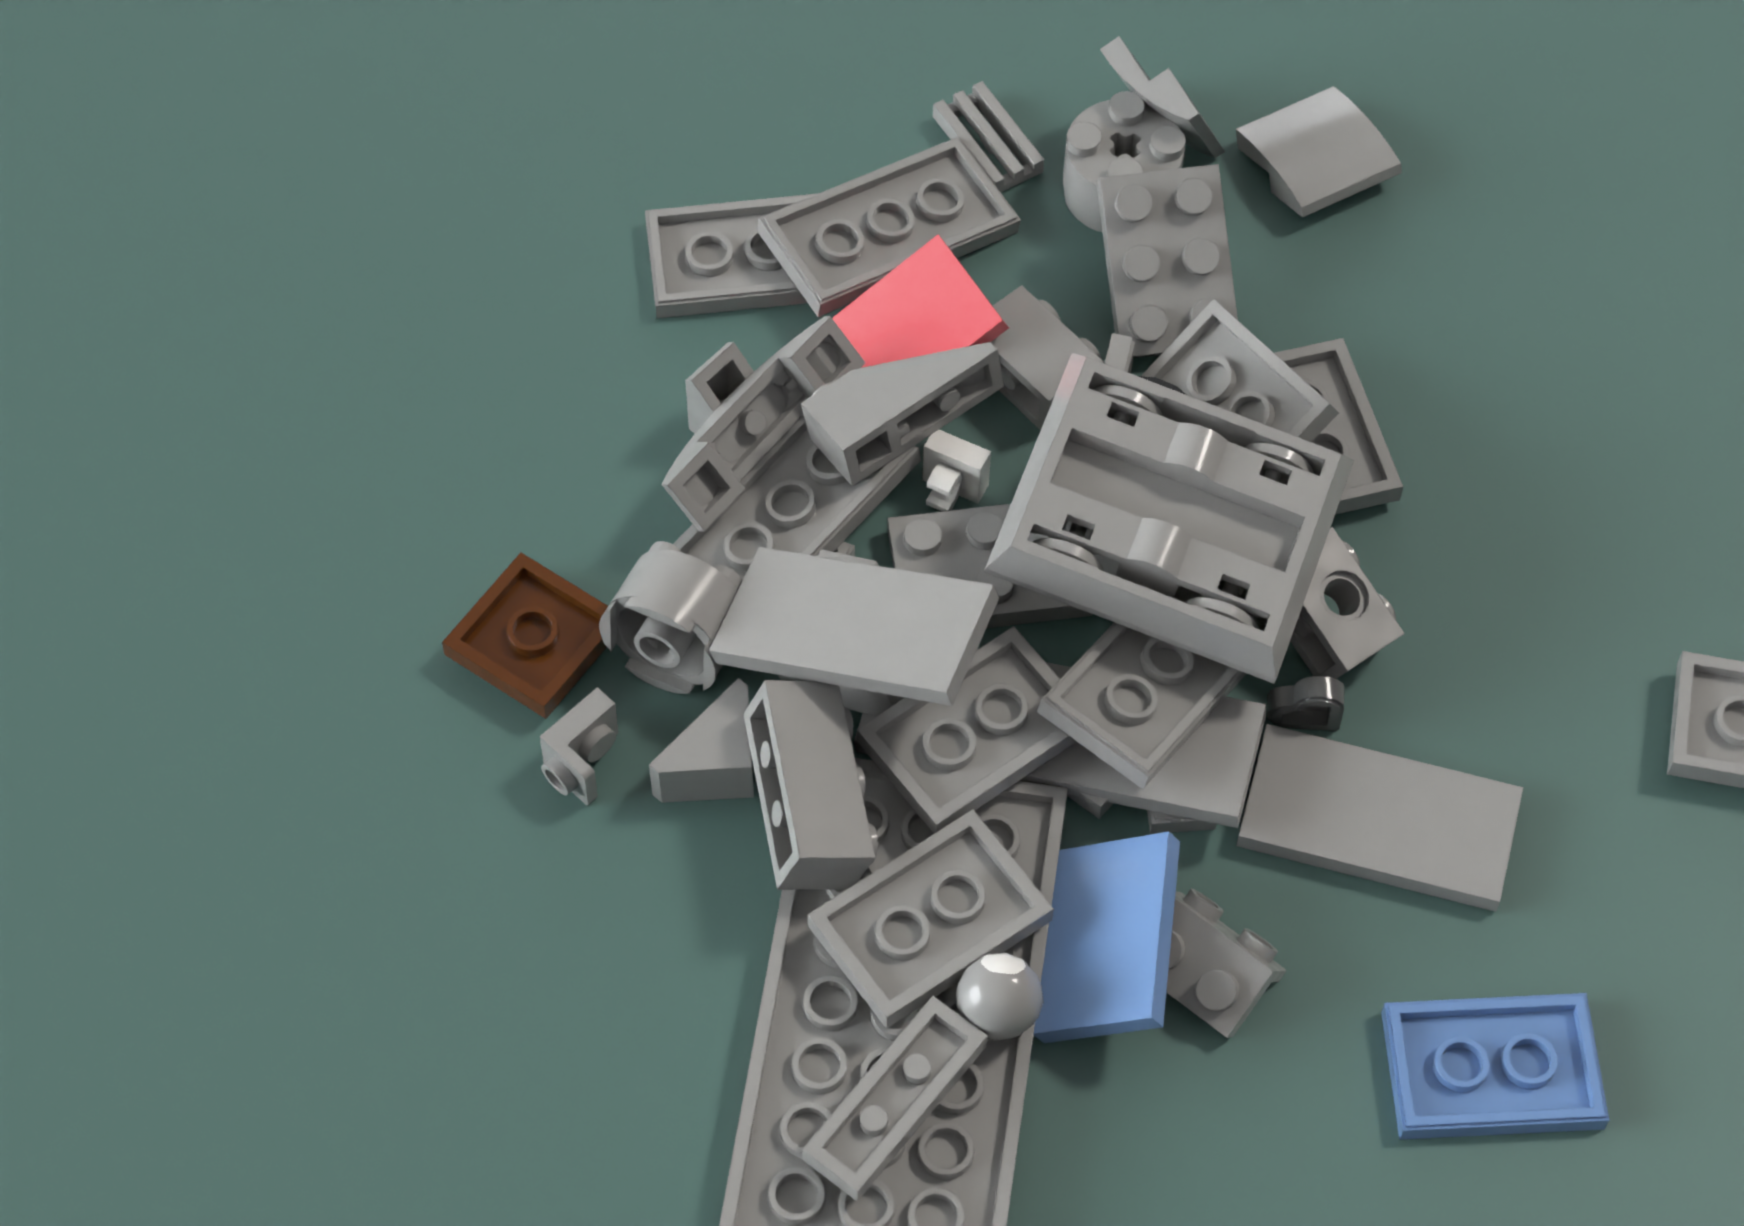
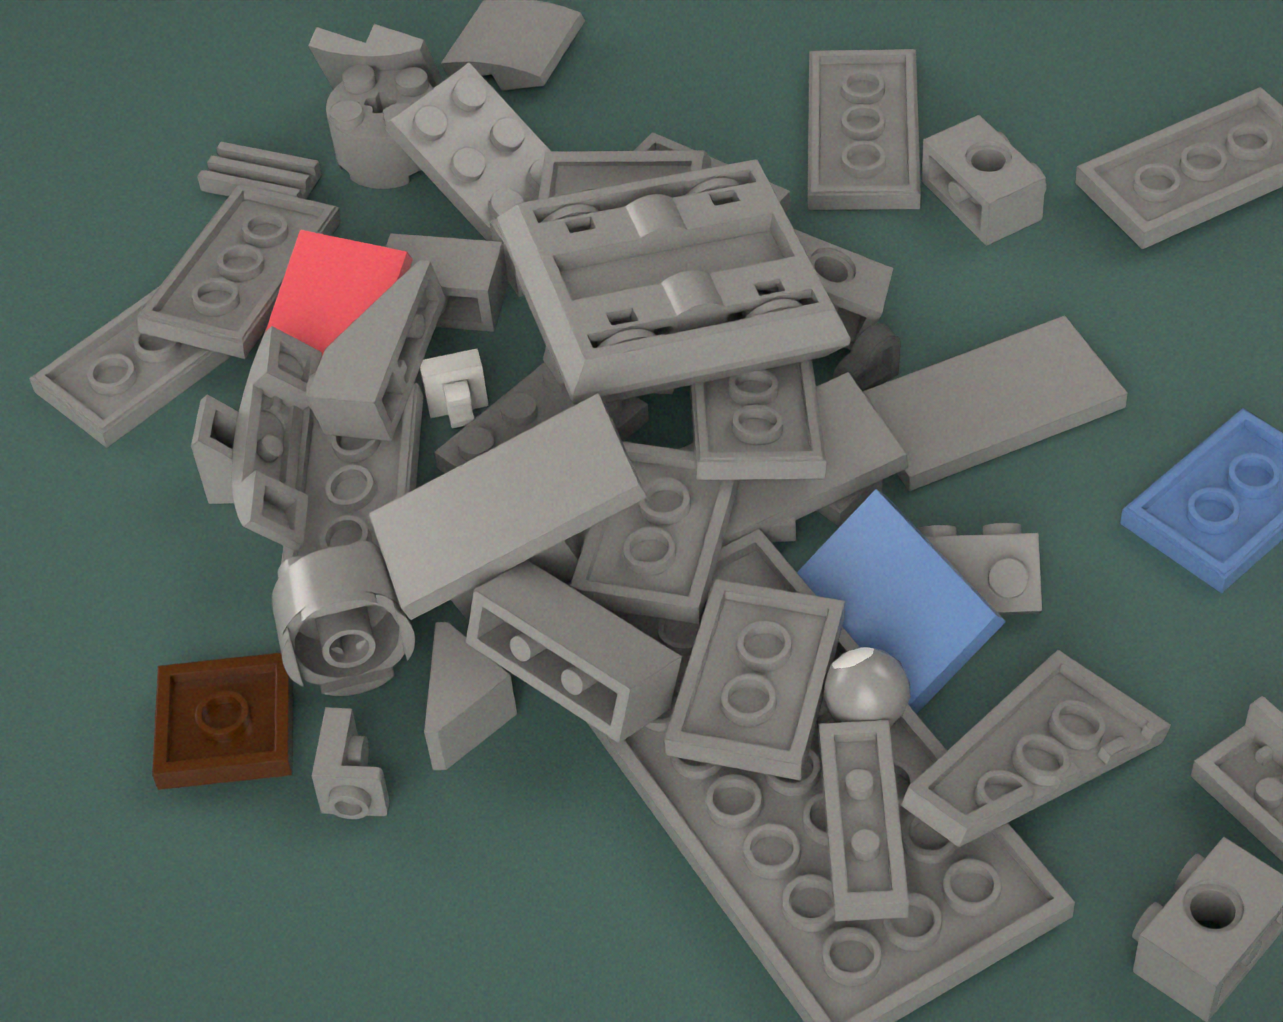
camera: 35 degrees left, 10 degrees down
(1096, 1147) = (1031, 749): none -> light grey wing
(1543, 466) = (863, 130): none -> light grey tile
(1573, 629) = (983, 179): none -> light grey brick

